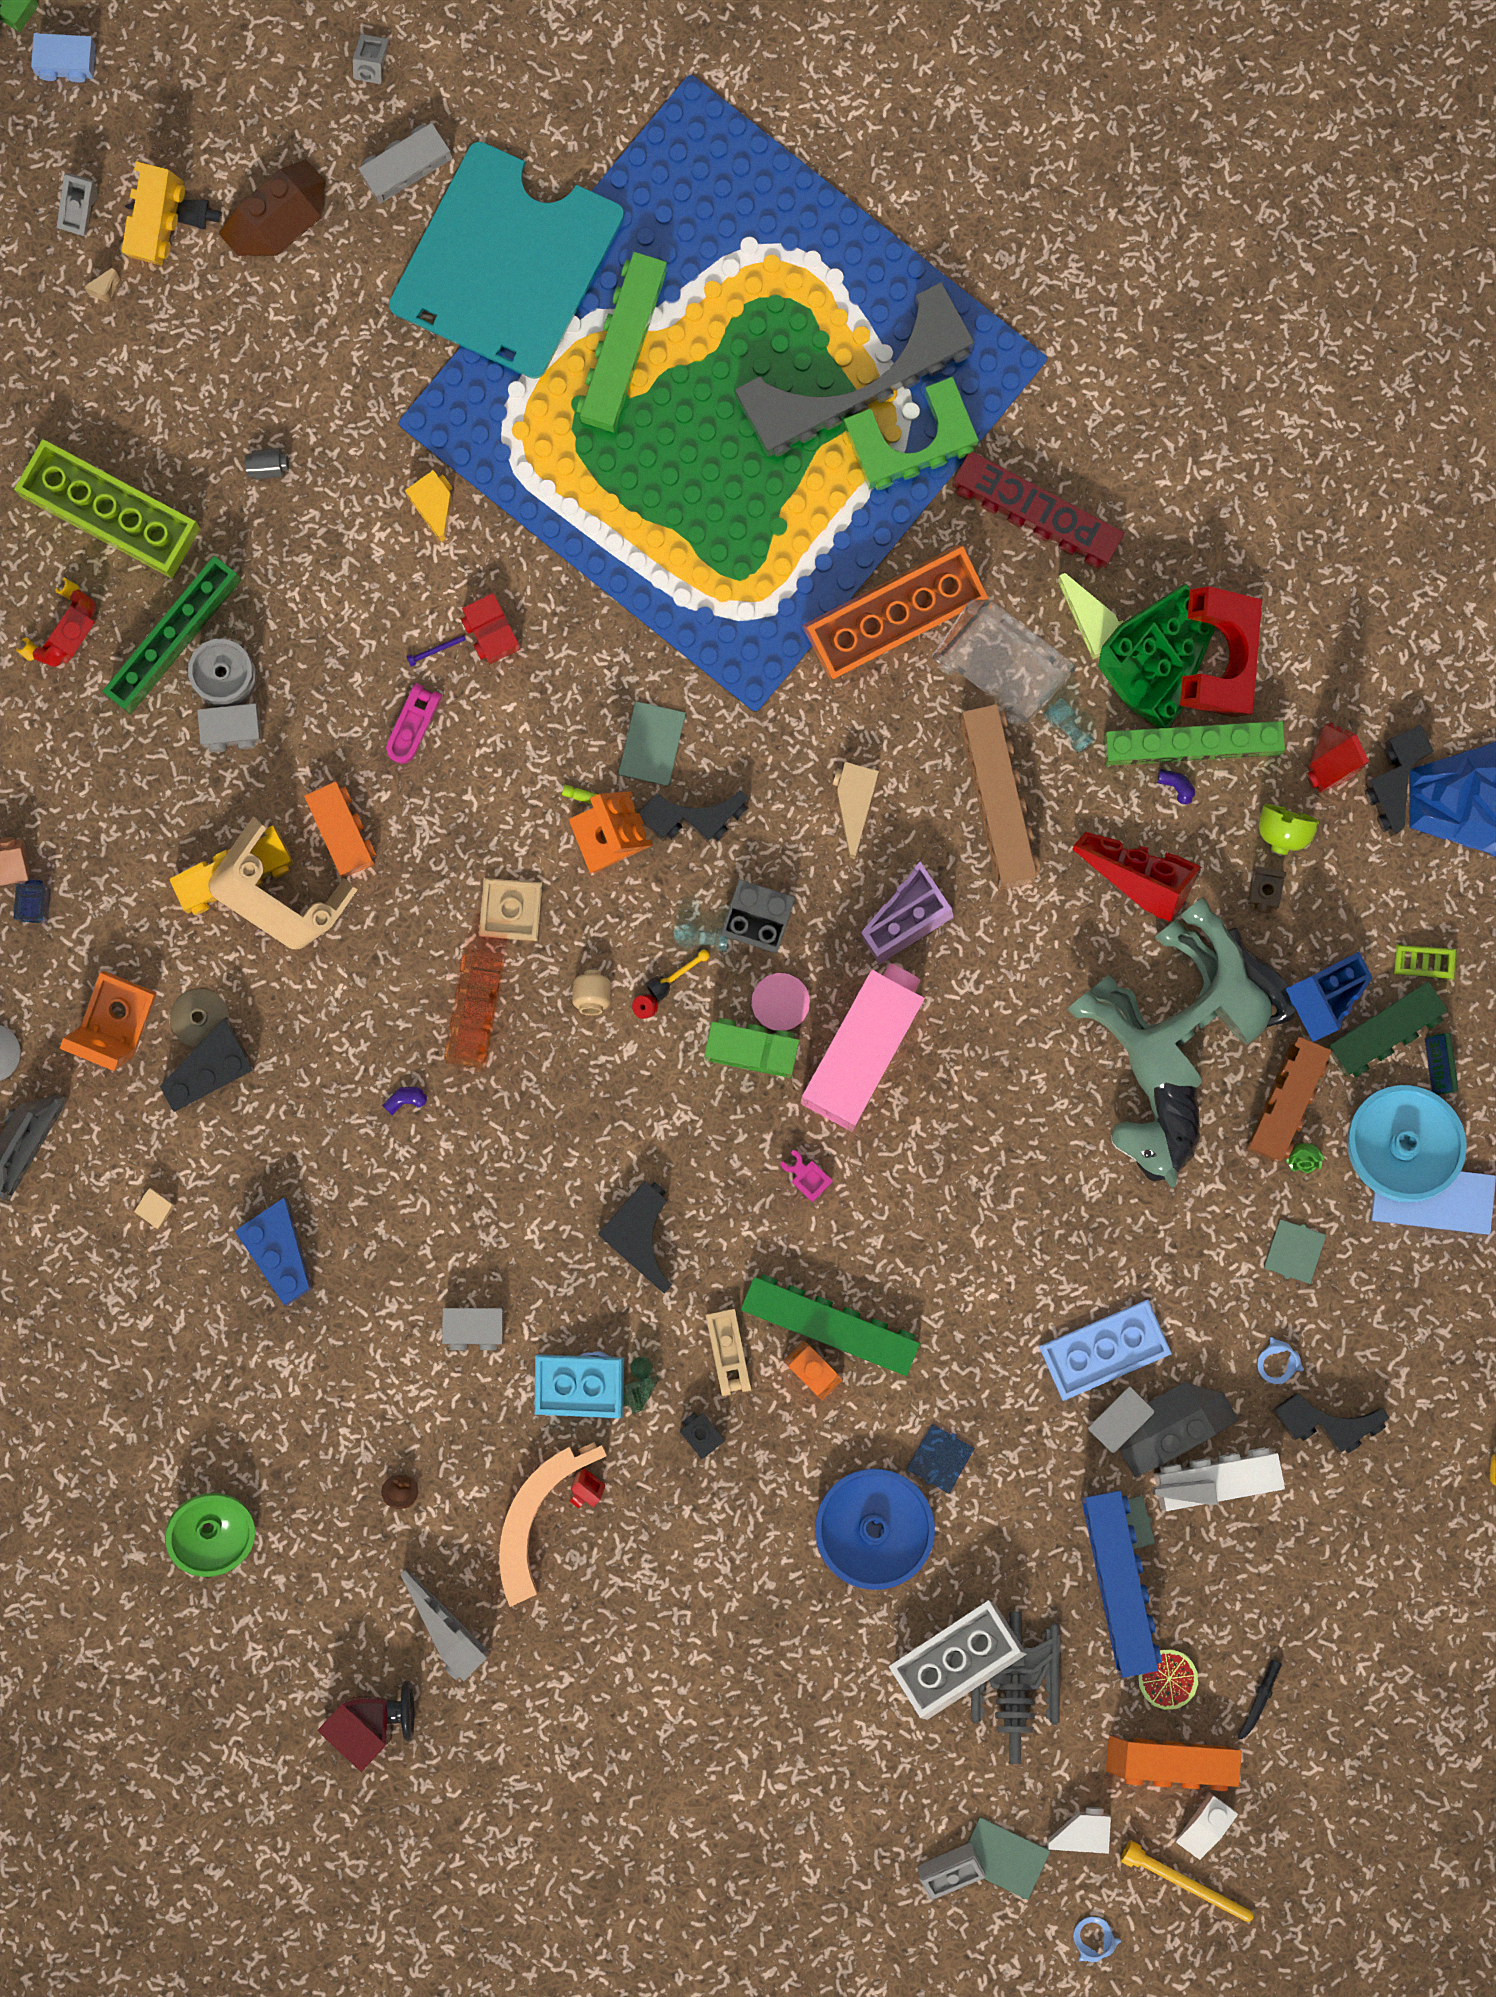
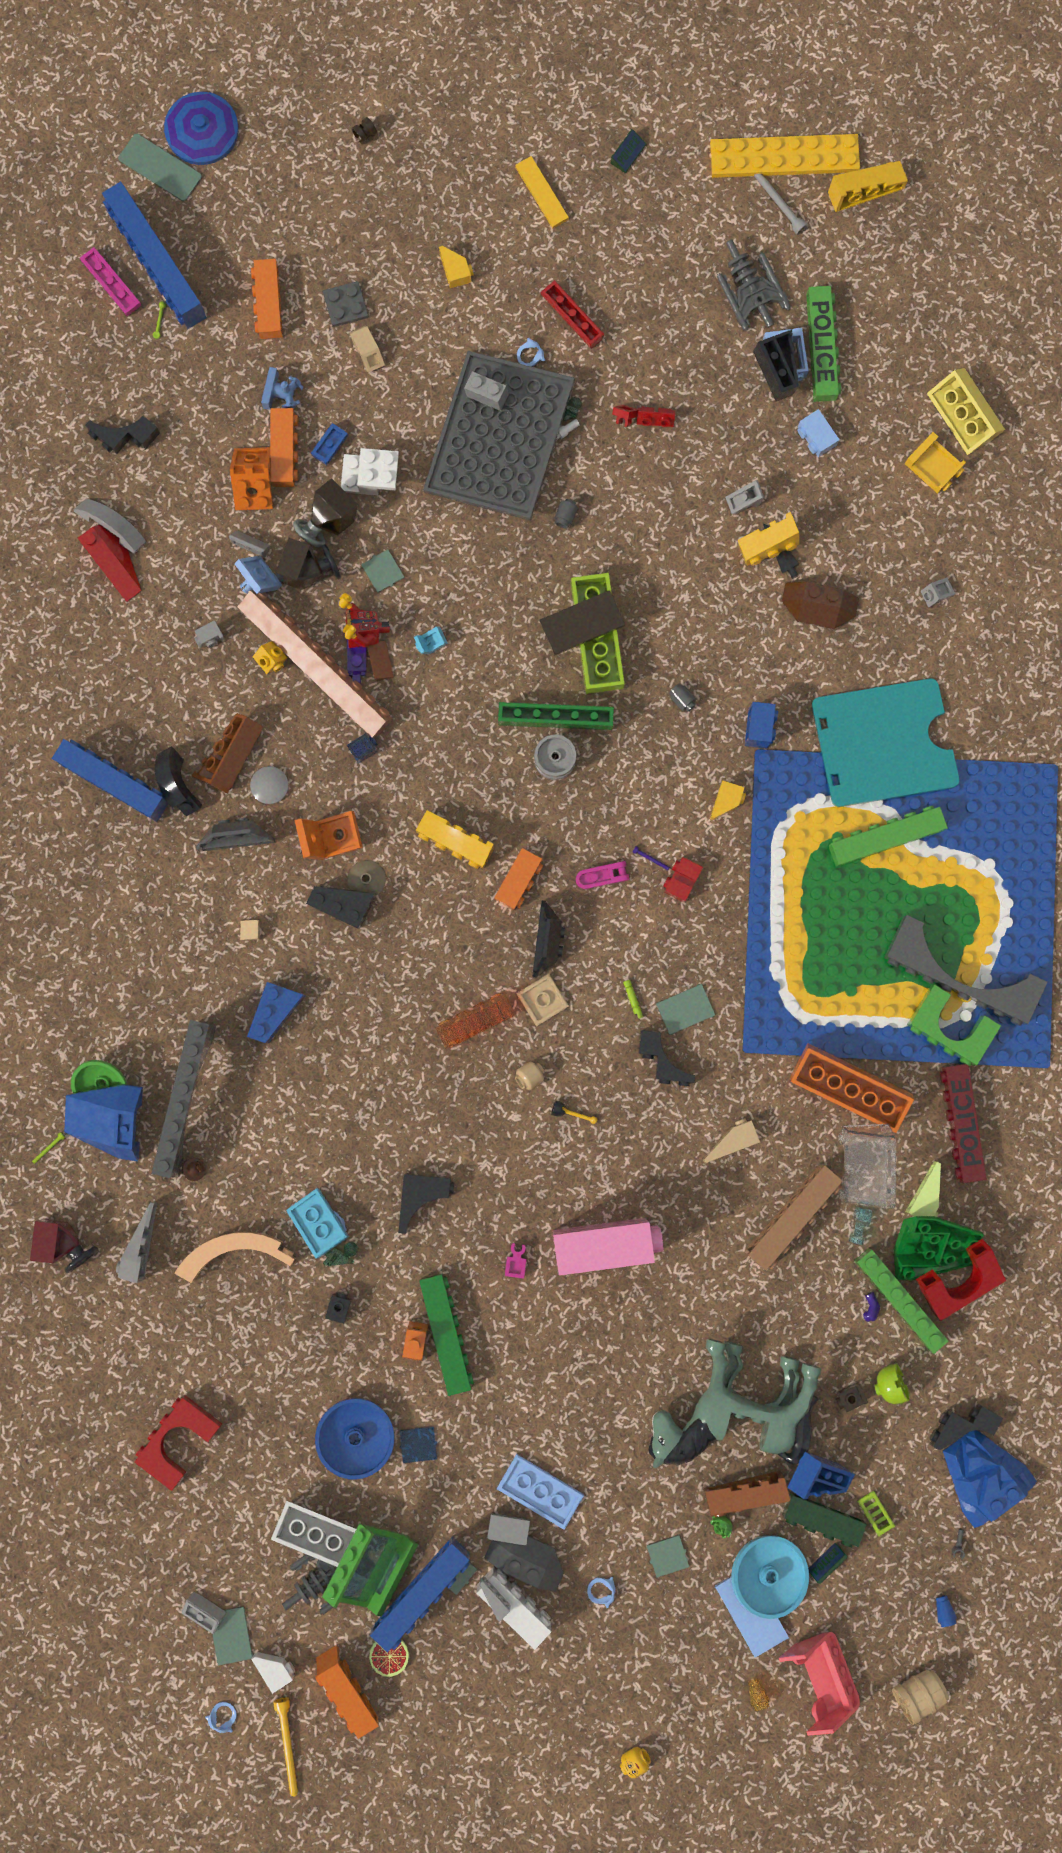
camera: 50 degrees right, 0 degrees up
(68, 632) = (518, 661): red torso -> none
(80, 516) = (582, 622): none -> dark brown tile
(104, 285) = (713, 544): tan slope -> none
(230, 727) = (530, 782): light grey brick -> none
(236, 888) = (447, 848): tan windscreen -> none
(236, 1630) = (60, 1136): none -> lime piece
(257, 1555) = (106, 1119): none -> blue wedge
(344, 1490) = (170, 1147): none -> dark grey arch
(371, 394) = (760, 725): none -> blue brick
(404, 162) = (896, 651): light grey brick -> none
(405, 1095) = (403, 1017): dark purple arm -> none
(442, 848) = (548, 940): none -> black wedge
(473, 1326) = (307, 1143): light grey brick -> none
(586, 1488) = (266, 1267): red tile -> none
(620, 824) = (629, 1025): orange bracket -> none
(645, 1006) = (543, 1109): red piece -> none
(689, 937) = (598, 1106): clear light blue leg -> none
(715, 1796) = (153, 1456): none -> red arch
(728, 1351) = (393, 1288): tan plate -> none
(751, 1048) = (562, 1184): bright green piece -> none
(758, 916) = (634, 1135): dark grey slope -> none
(780, 1002) = (598, 1179): bright pink tile -> none
(907, 916) = (696, 1215): lavender wedge -> none
(1045, 1621) = (370, 1569): none -> panel
(1150, 881) = (809, 1332): red wedge -> none
(1206, 1826) = (325, 1735): white slope -> none
(1264, 1692) = (419, 1713): black piece -> none
(1335, 758) = (950, 1385): red wedge -> none
(1344, 1433) = (589, 1656): black arch -> none

